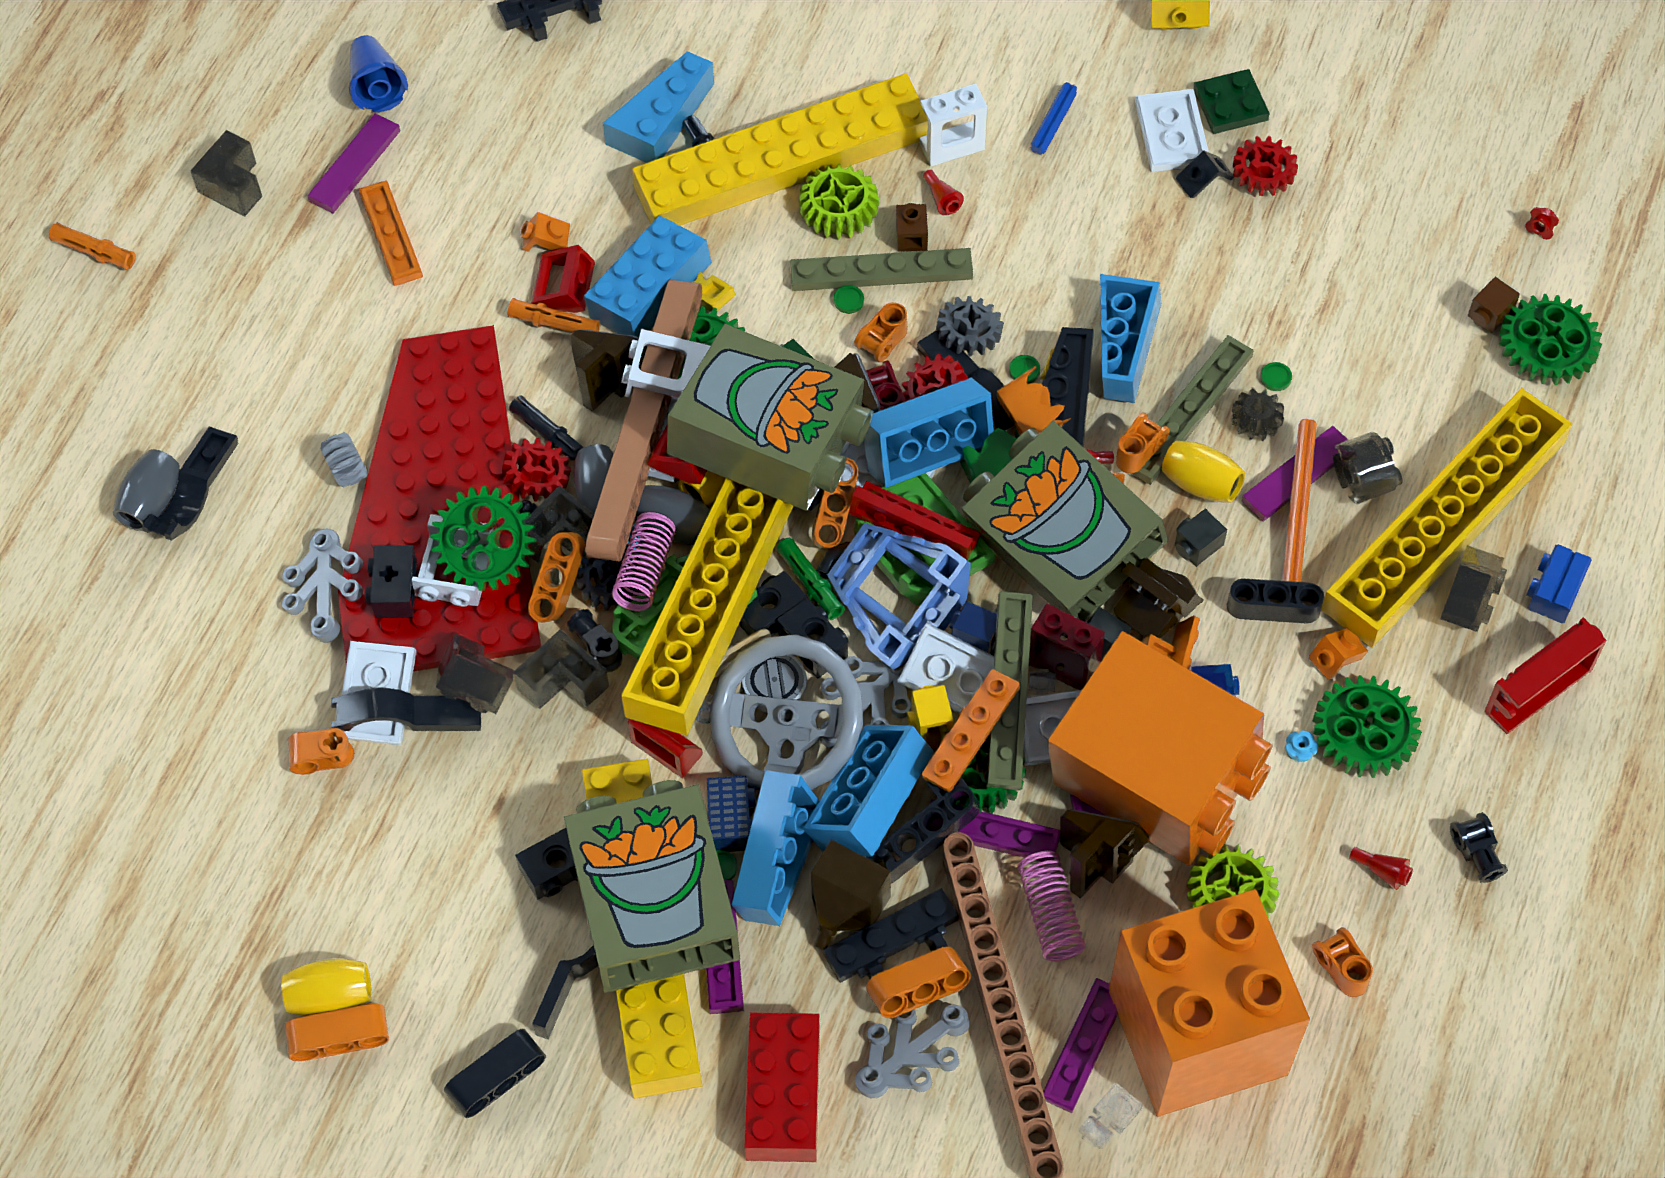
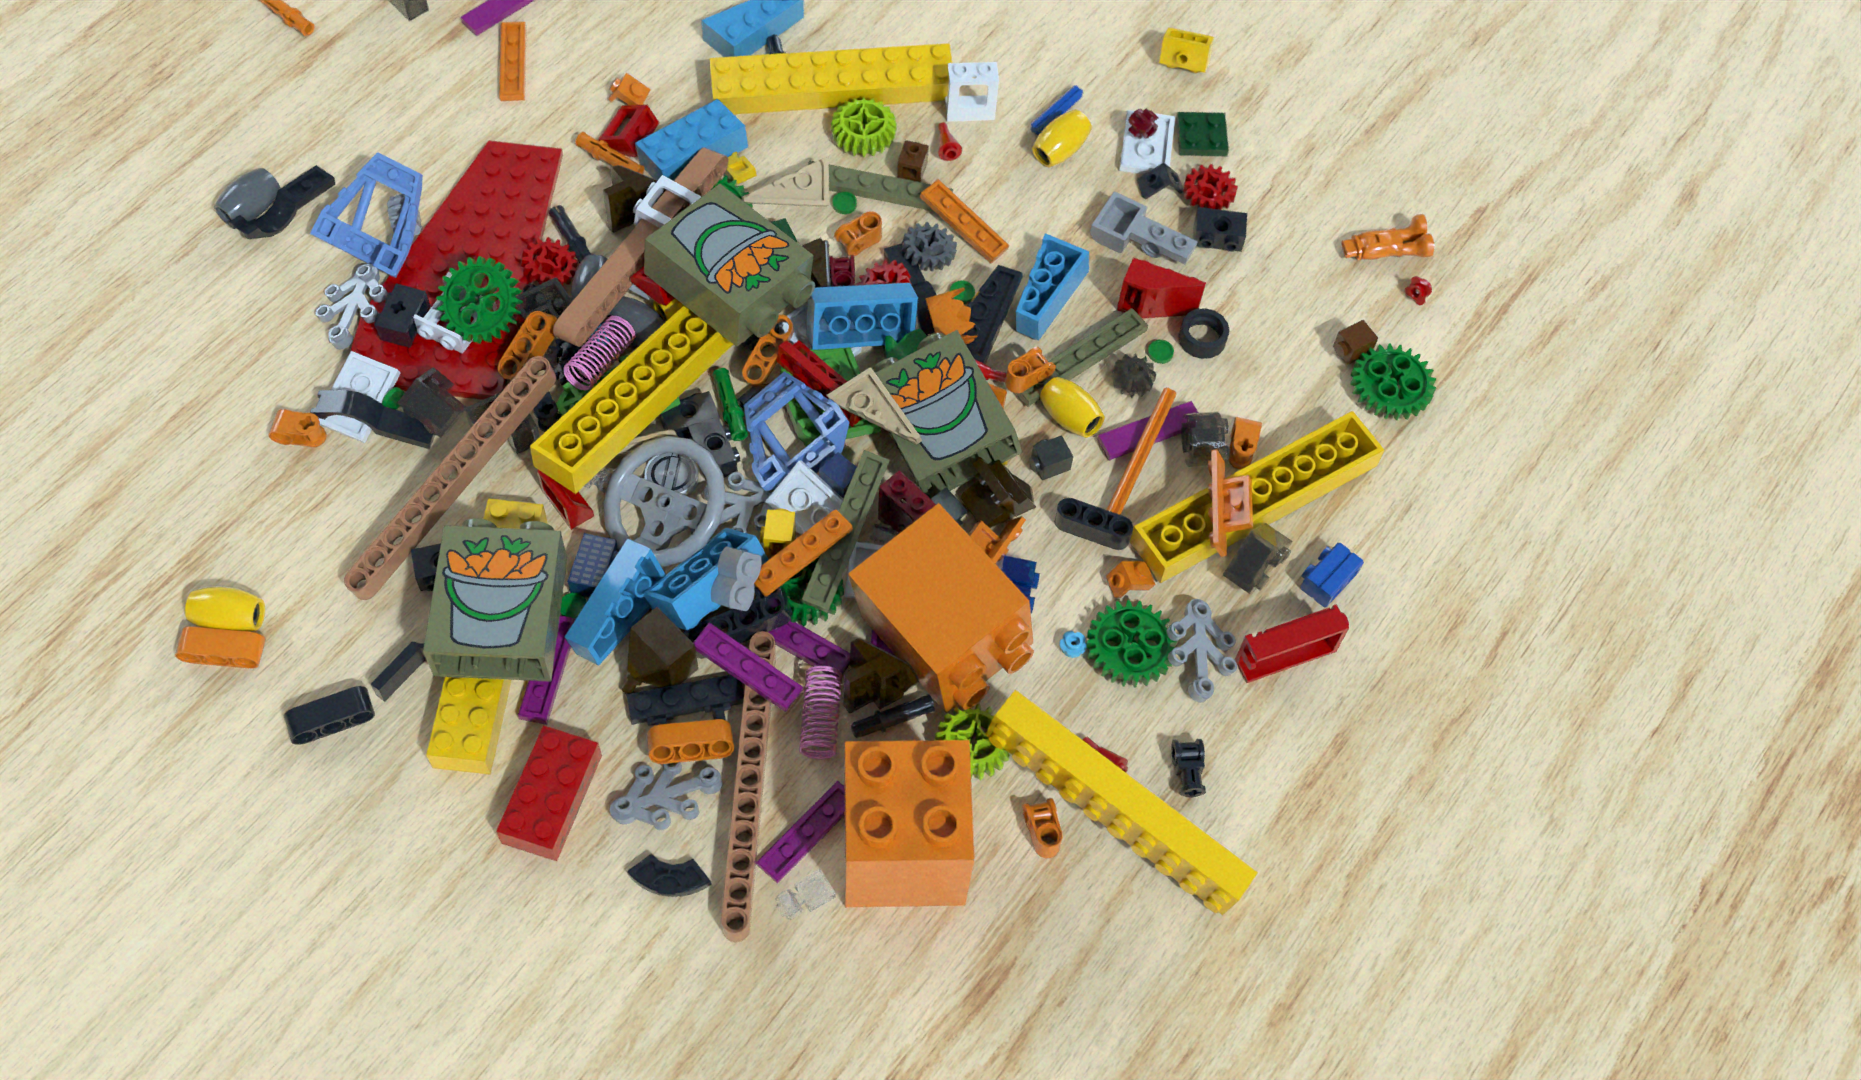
camera: 10 degrees right, 0 degrees up
(306, 509) = (351, 238): none -> medium blue windscreen
(418, 682) = (392, 397): none -> green piece
(535, 771) = (450, 489): none -> nougat beam
(795, 296) = (801, 188): none -> tan wing
(910, 781) = (736, 578): none -> light grey brick
(951, 1143) = (669, 879): none -> black tile
(955, 879) = (747, 667): none -> magenta tile
(984, 531) = (872, 401): none -> tan wing
(998, 283) = (964, 221): none -> orange tile
(1075, 152) = (1062, 138): none -> yellow piece
(1130, 888) = (893, 716): none -> black axle
(1163, 109) = (1143, 123): none -> dark red gear
(1181, 233) = (1126, 220): none -> light grey plate
(1253, 307) = (1159, 291): none -> red slope
(1293, 212) = (1220, 229): none -> black brick
(1318, 322) = (1209, 318): none -> black tyre
(1409, 456) = (1244, 441): none -> orange piece
(1424, 911) = (1120, 804): none -> yellow brick
(1427, 533) = (1230, 503): none -> orange bracket
(1429, 672) = (1202, 647): none -> light grey plant
(1490, 174) = (1388, 243): none -> orange piece

